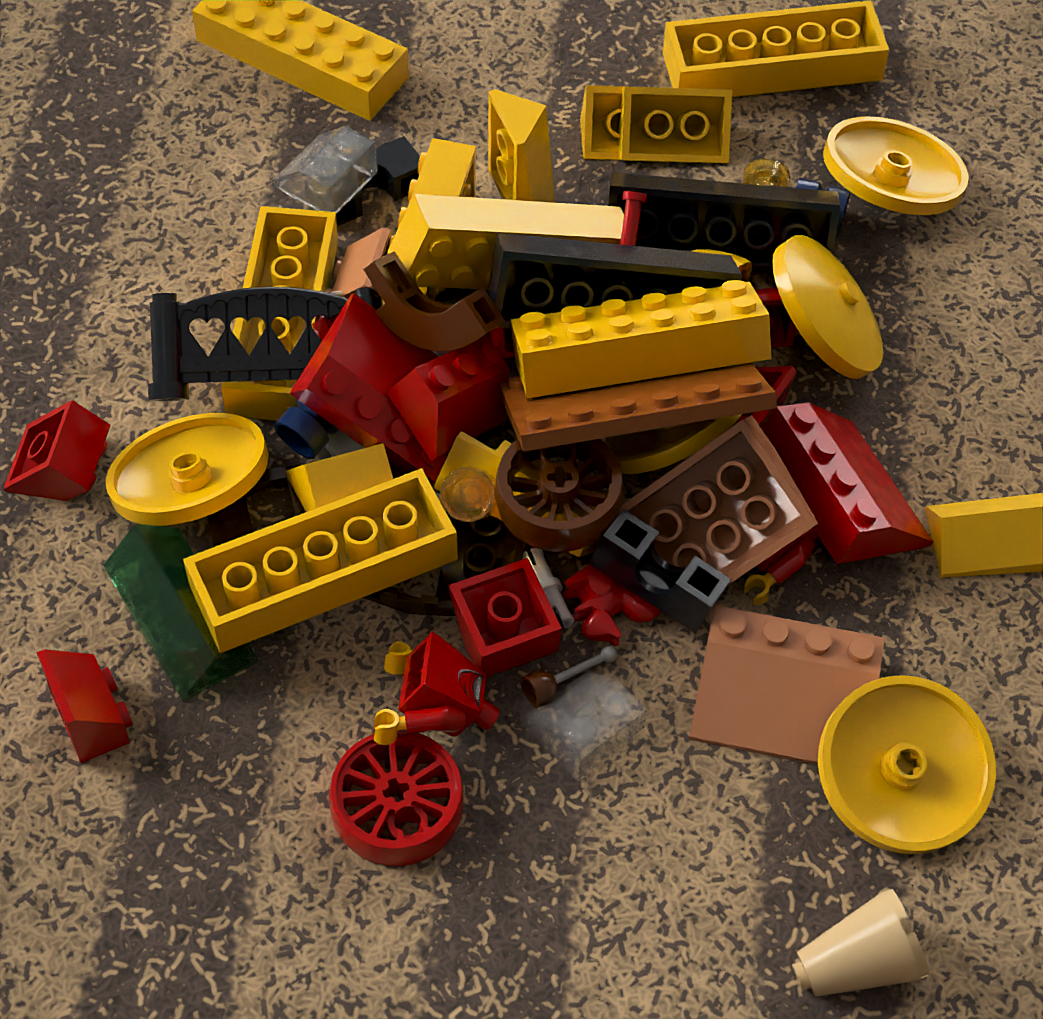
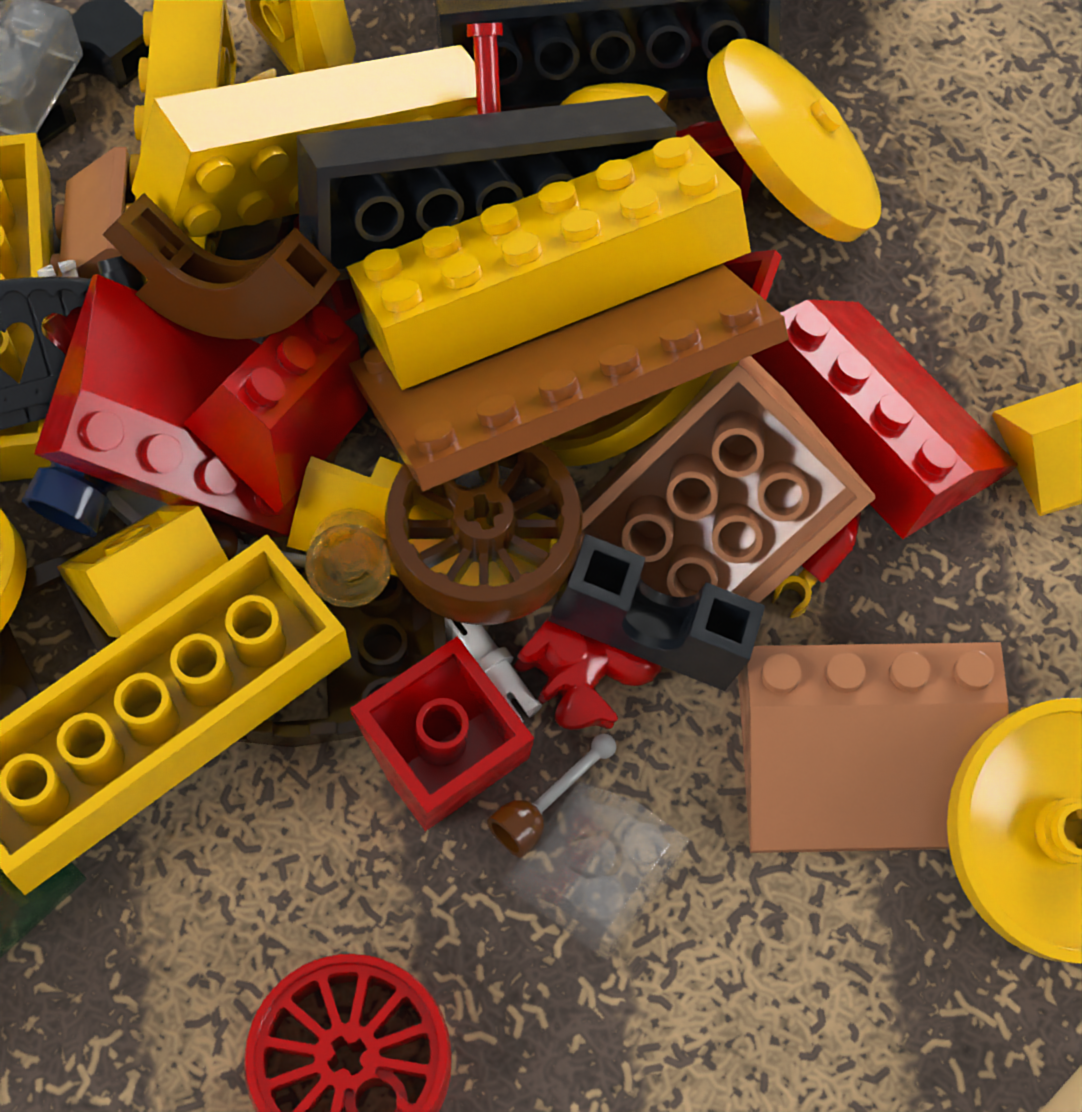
camera: 15 degrees left, 10 degrees up
(437, 692) = (374, 880): red torso -> none

